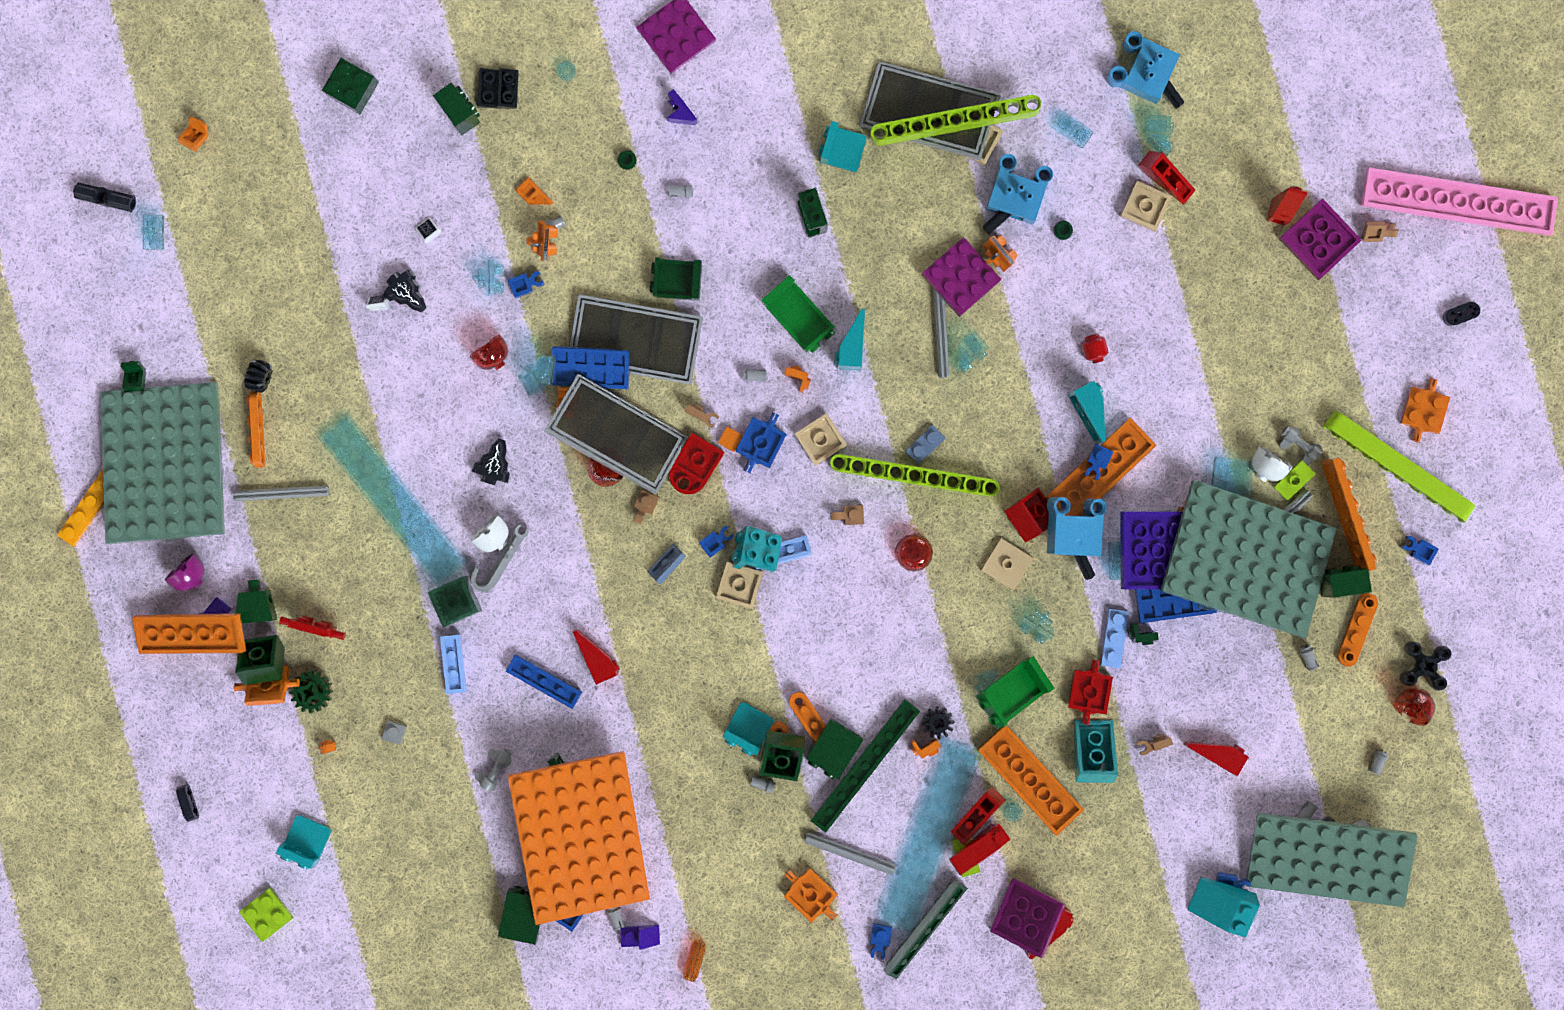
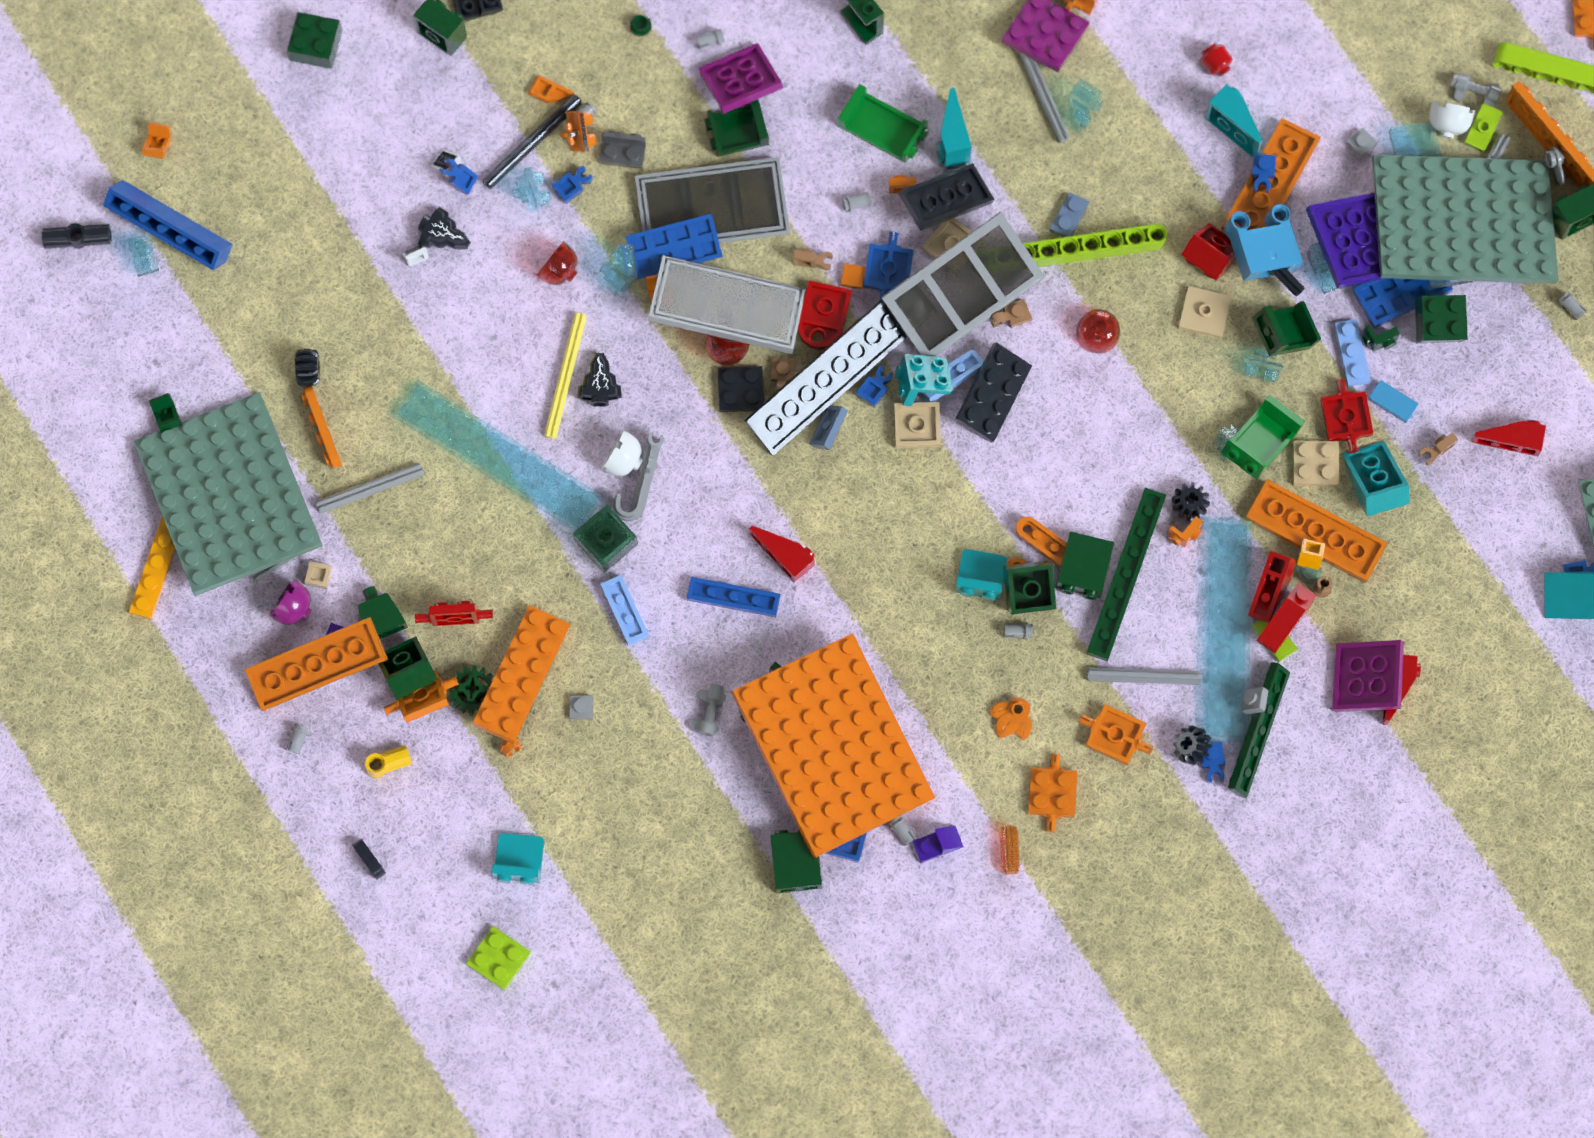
camera: 15 degrees left, 15 degrees down
(160, 685) = (297, 738): none -> light grey pin
(180, 212) = (167, 224): none -> blue brick
(217, 554) = (318, 575): none -> tan plate
(227, 728) = (390, 761): none -> yellow piece
(352, 692) = (521, 674): none -> orange plate
(434, 248) = (461, 176): none -> blue plate
(468, 448) = (565, 375): none -> light yellow axle
(504, 234) = (531, 142): none -> black axle
(576, 267) = (622, 150): none -> flat silver bracket
(607, 506) = (740, 388): none -> black plate
(692, 237) = (740, 78): none -> magenta plate
(693, 515) = (826, 378): none -> plate
(731, 856) = (1010, 721): none -> orange plate
(744, 924) = (1053, 792): none -> orange plate
(810, 578) = (993, 392): none -> black plate
(814, 483) = (963, 287): none -> door
(828, 398) = (946, 196): none -> black plate
(867, 926) = (1192, 745): none -> black gear
(929, 907) = (1254, 700): none -> light grey plate
(1015, 825) = (1326, 590): none -> medium nougat pin
(1019, 800) = (1311, 554): none -> light orange slope
(1051, 722) = (1316, 463): none -> tan plate
(1067, 604) = (1286, 329): none -> dark green panel
(1132, 690) = (1393, 401): none -> dark azure tile
(1188, 459) = (1361, 142): none -> light grey plate
(1197, 637) = (1441, 319): none -> dark green brick
(1342, 532) = (1554, 159): none -> light grey plate

